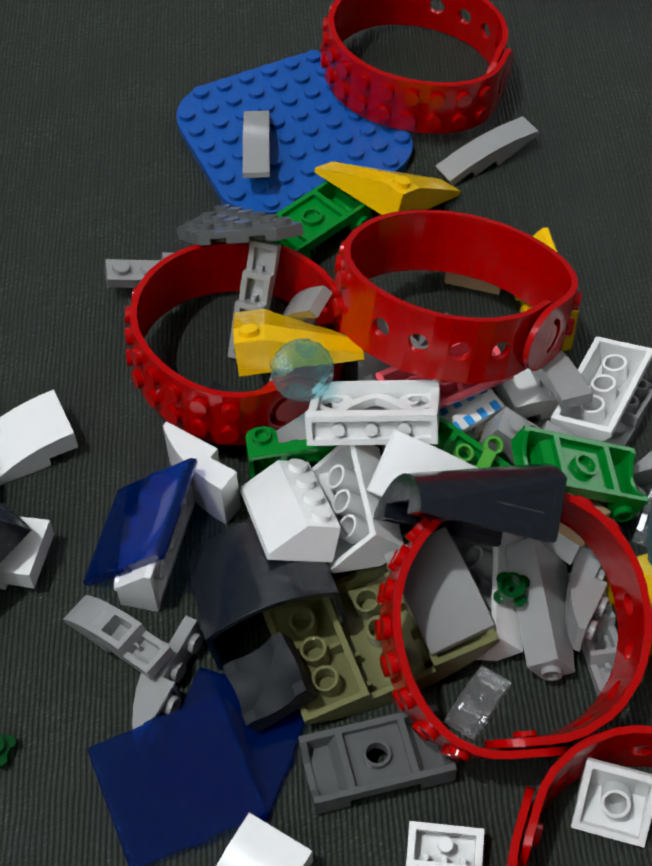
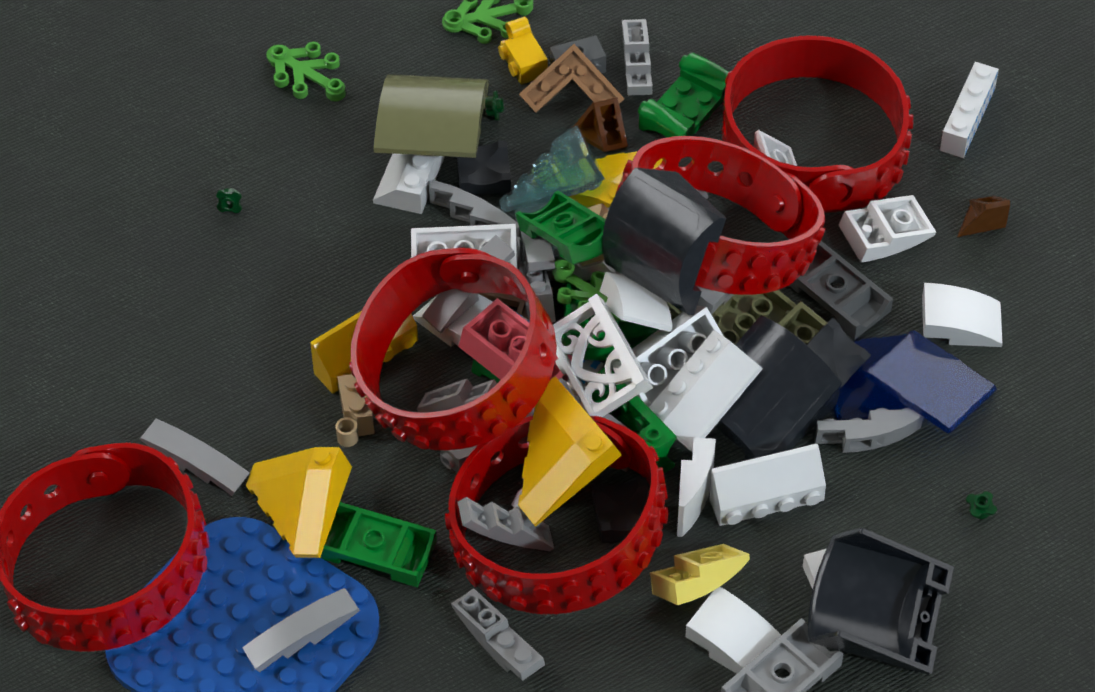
camera: 120 degrees left, 0 degrees up
(103, 429) = (697, 573): none -> light yellow slope
(119, 634) = (859, 466): light grey slope -> none
(141, 523) = (768, 490): clear blue piece -> none
(237, 226) = (445, 567): dark grey plate -> none
(302, 370) = (599, 403): clear light blue dish -> none
(308, 304) = (508, 465): light grey slope -> none

